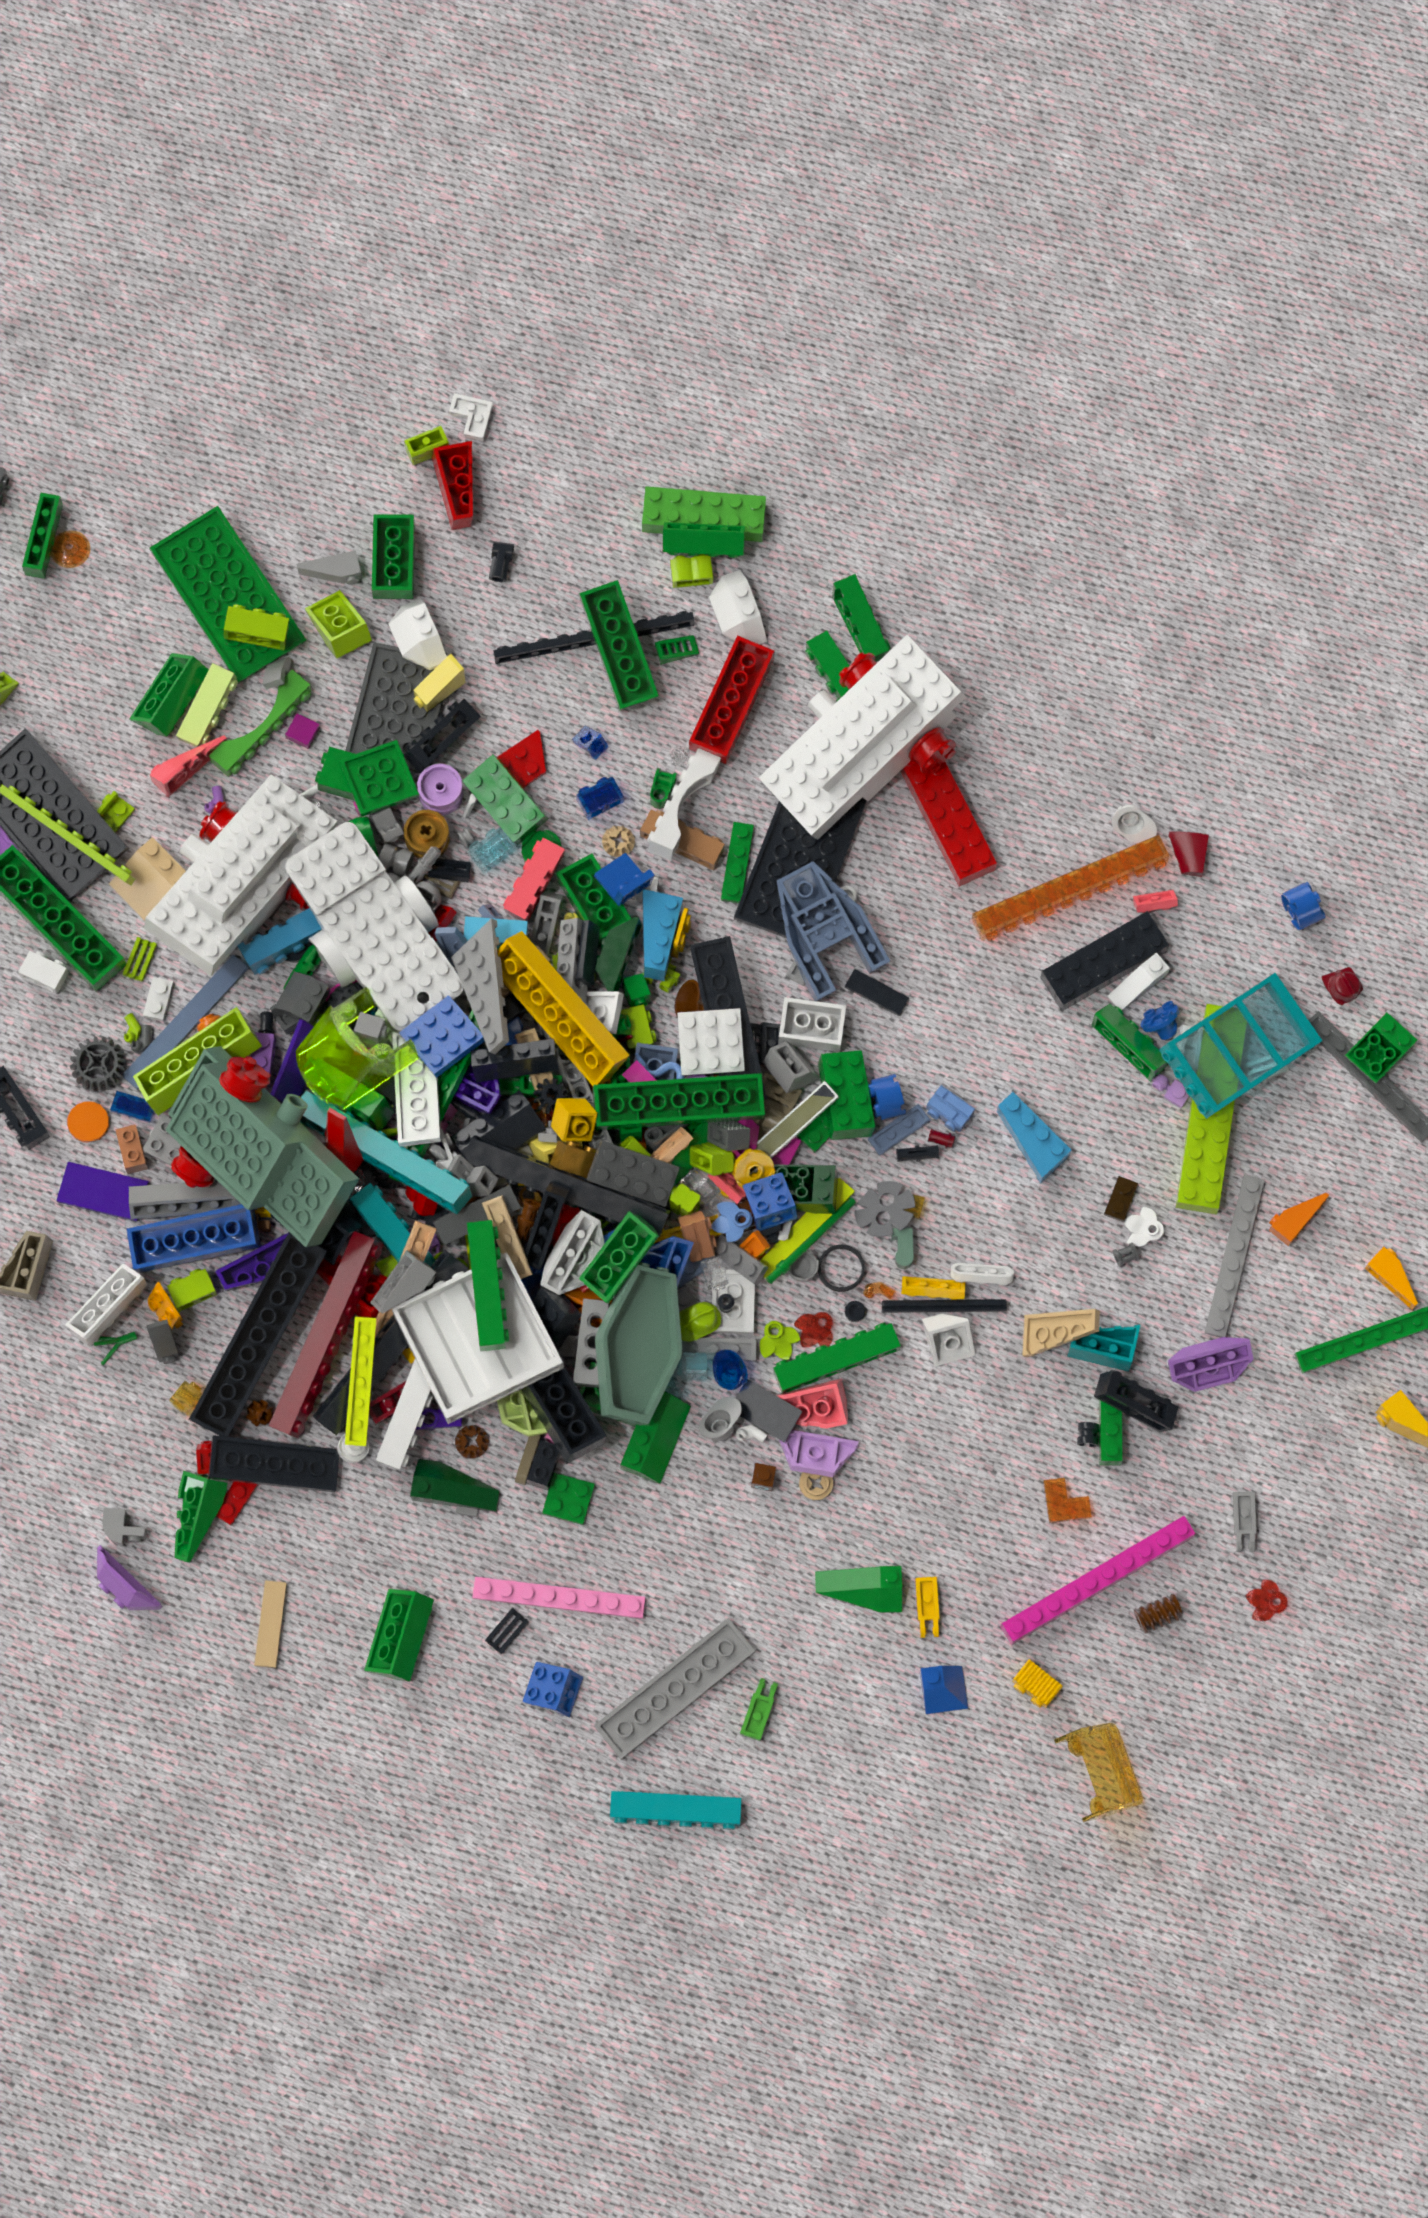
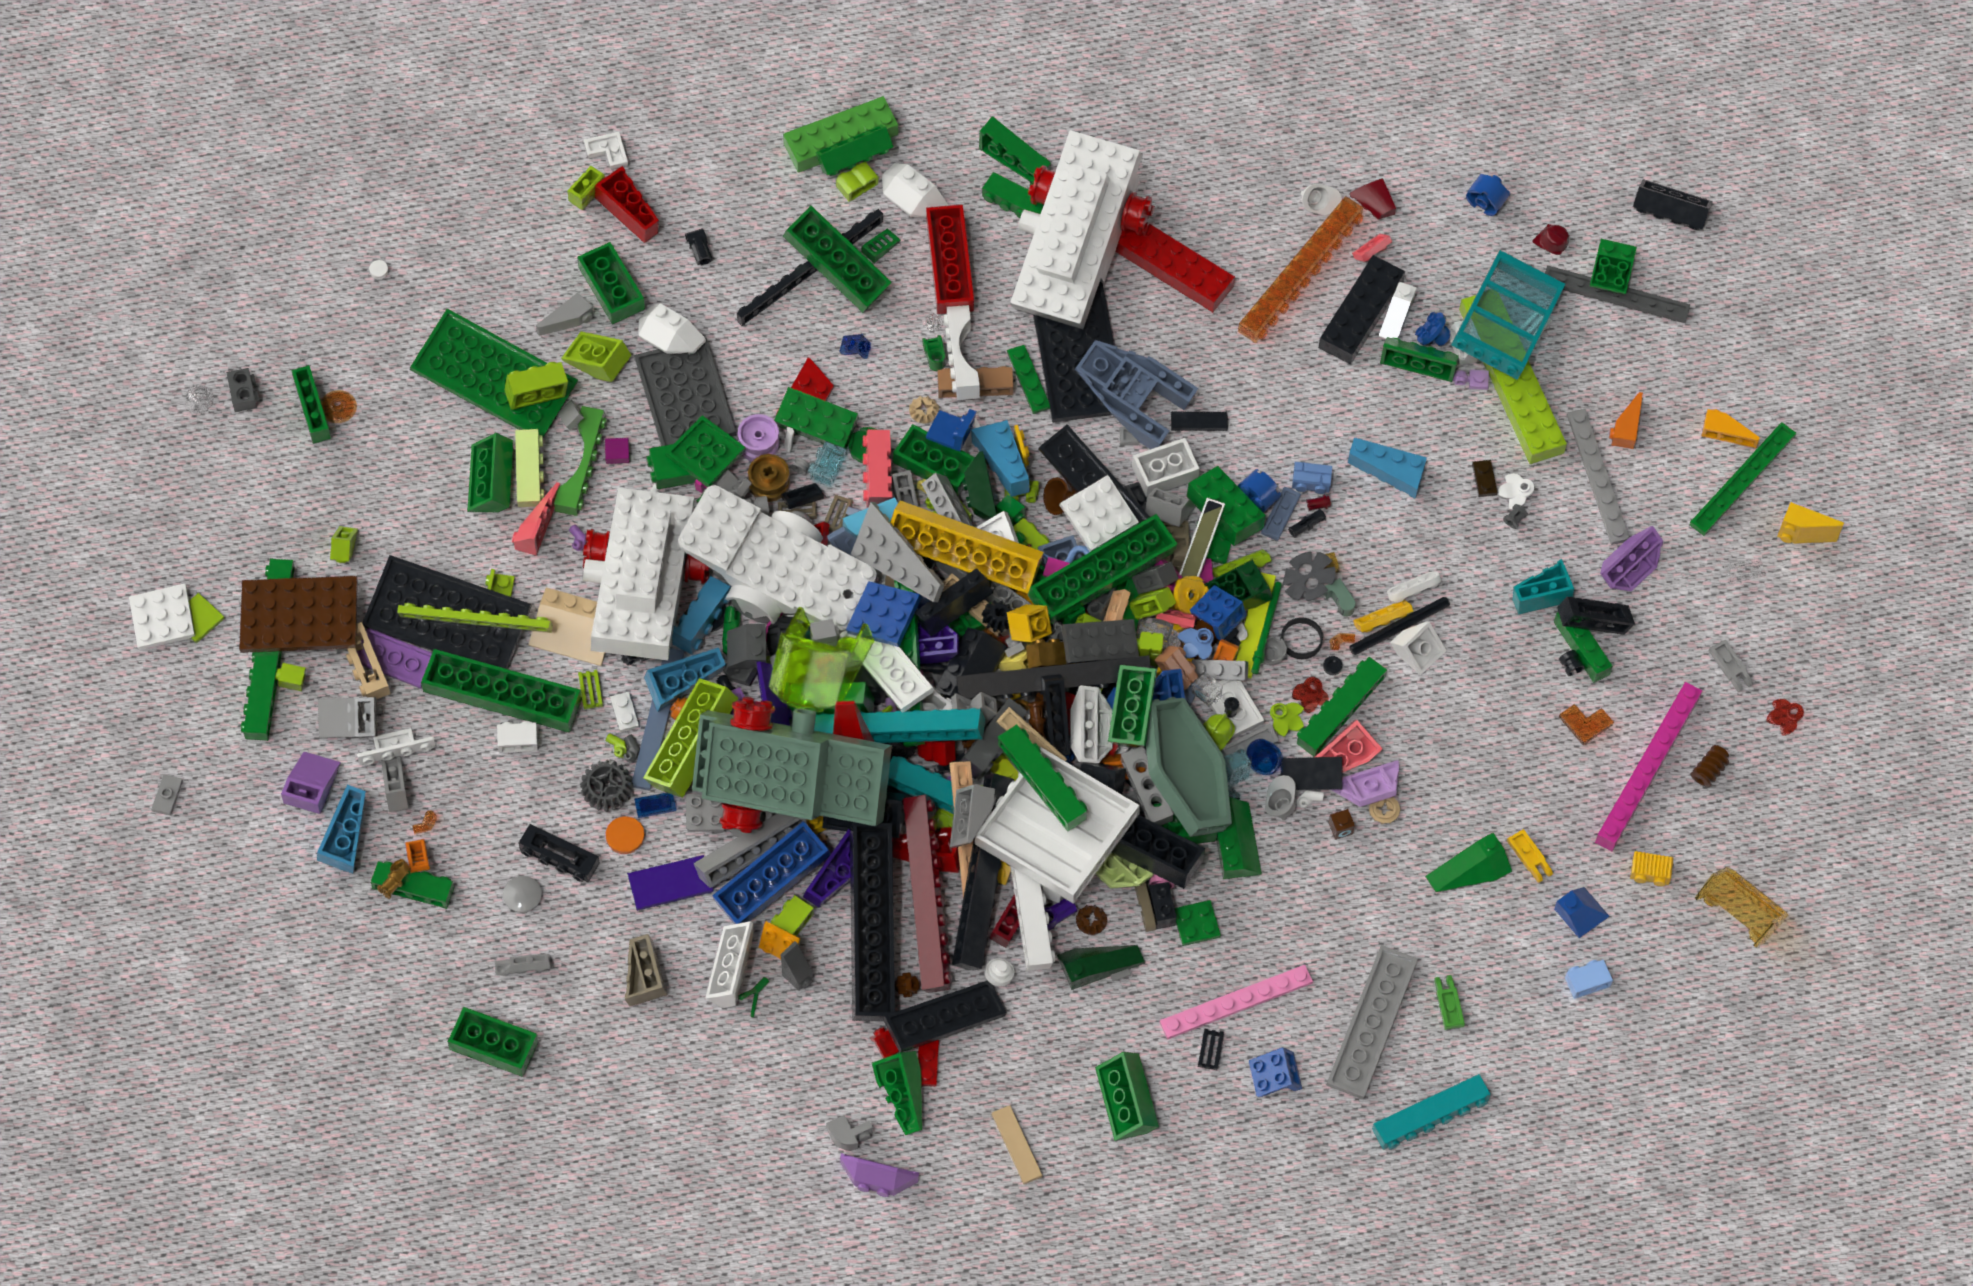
camera: 30 degrees left, 10 degrees down
(131, 1149) = (675, 836): nougat brick -> none
(186, 428) = (378, 269): none -> white tile
(186, 1397) = (839, 1004): clear yellow brick -> none
(223, 994) = (679, 677): none -> dark azure wedge
(360, 1381) = (979, 911): neon yellow plate -> none
(424, 864) = (783, 495): light grey axle -> none
(439, 683) = (710, 356): light yellow slope -> none
(459, 916) = (843, 500): none -> dark tan tile
(464, 713) = (738, 373): black brick -> none
(588, 952) = (958, 496): black tile -> none
(599, 797) = (890, 383): clear blue brick -> none
(844, 1164) = (1259, 557): none -> lime plate
(907, 1760) = (1588, 978): none -> light blue brick
(1057, 1328) = (1498, 595): tan wing -> none

